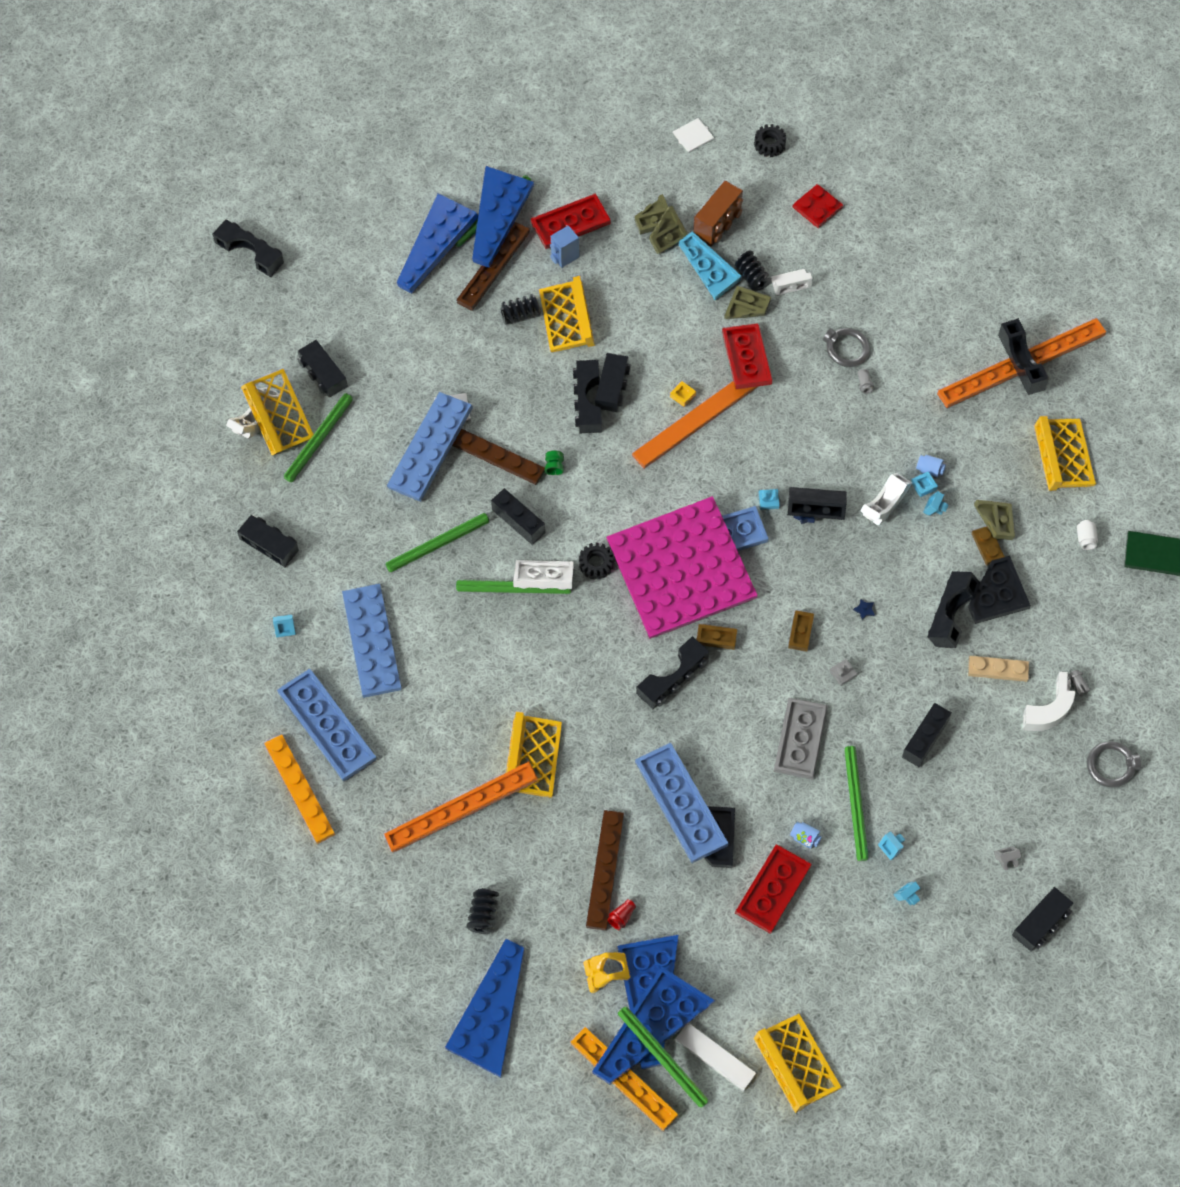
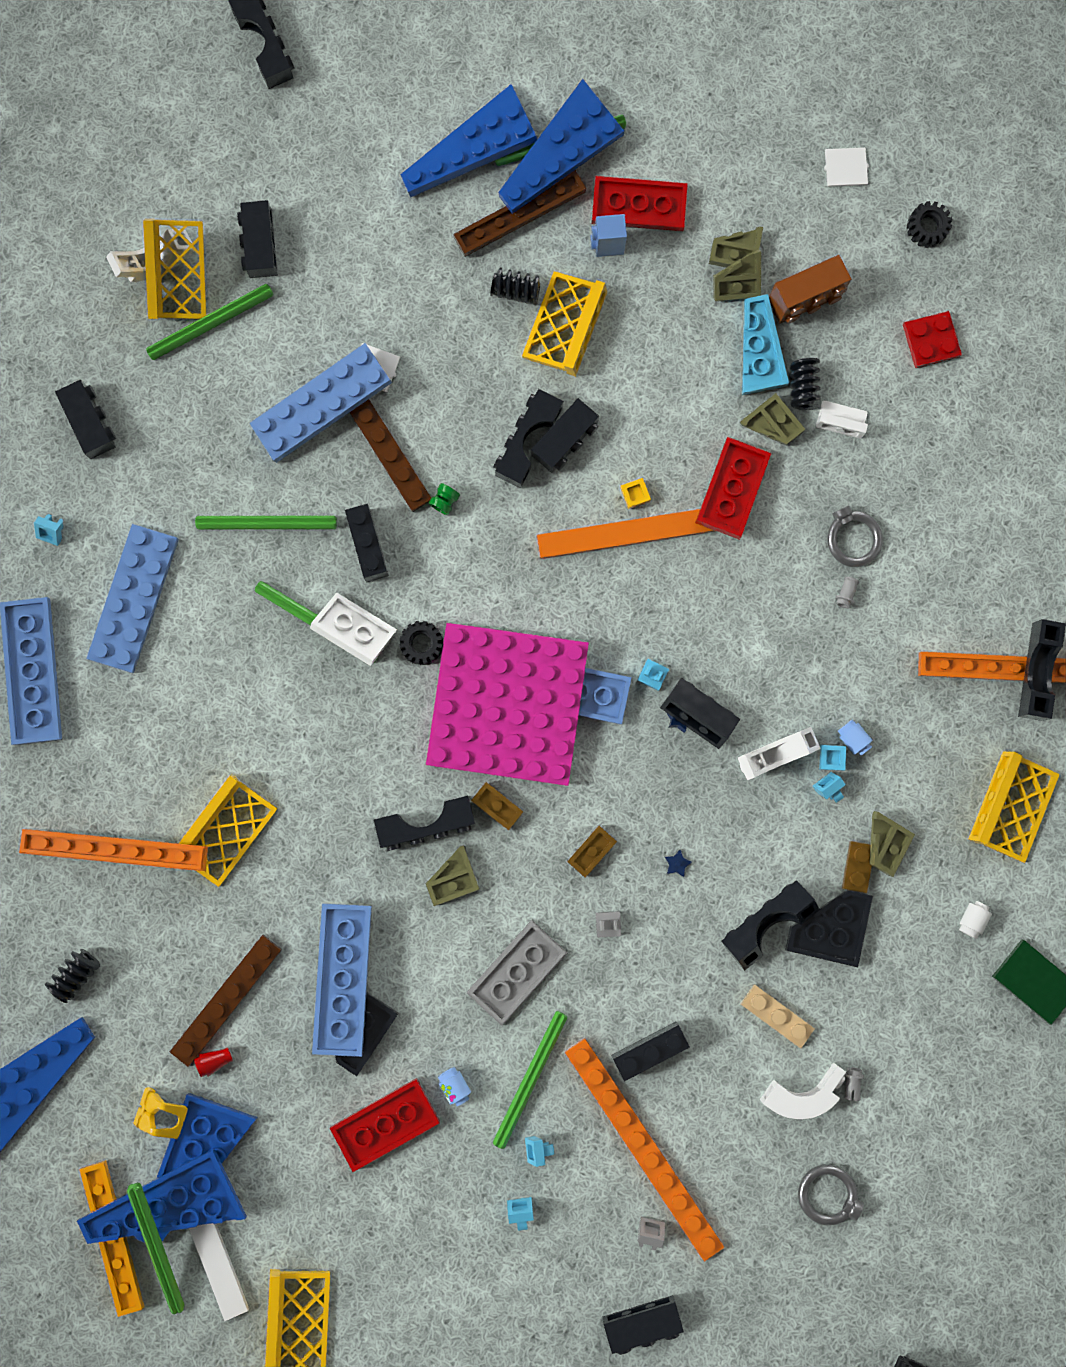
camera: 25 degrees right, 20 degrees up
(716, 700) = (452, 879): none -> olive wing
(966, 805) = (644, 1149): none -> orange plate

